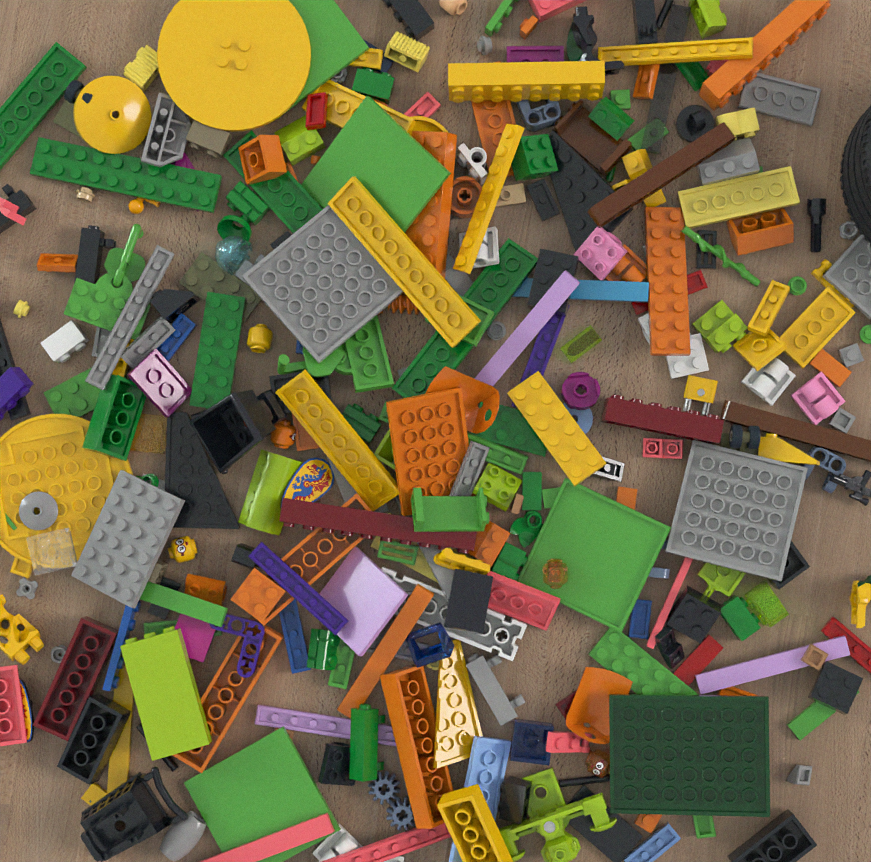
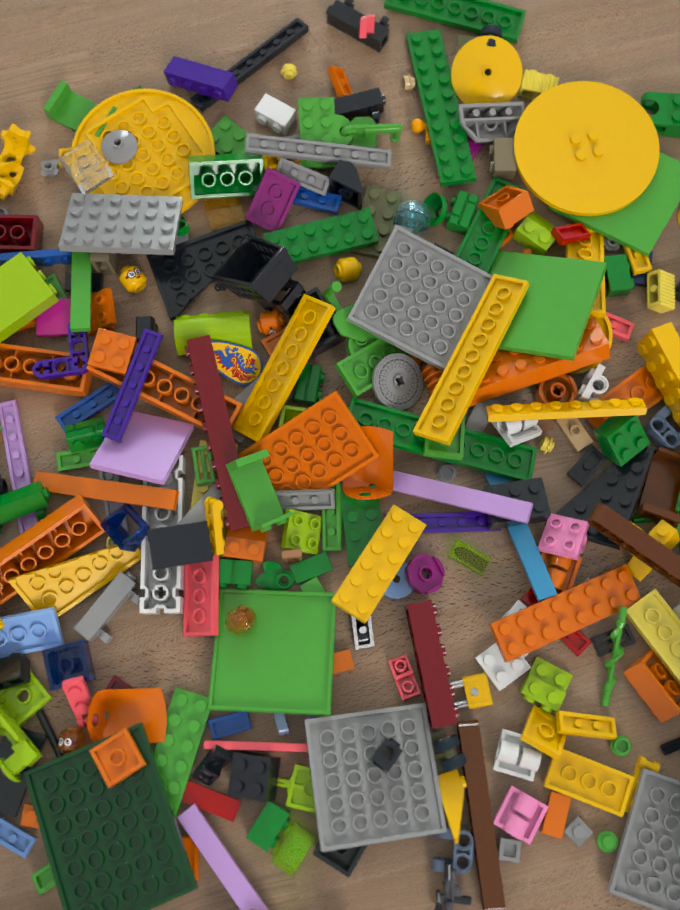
camera: 65 degrees right, 10 degrees down
(394, 352) = (385, 386): none -> light grey piece
(508, 227) = (546, 444): none -> light yellow plate
(632, 725) = (117, 757): none -> orange tile
(721, 500) = (382, 763): none -> black brick

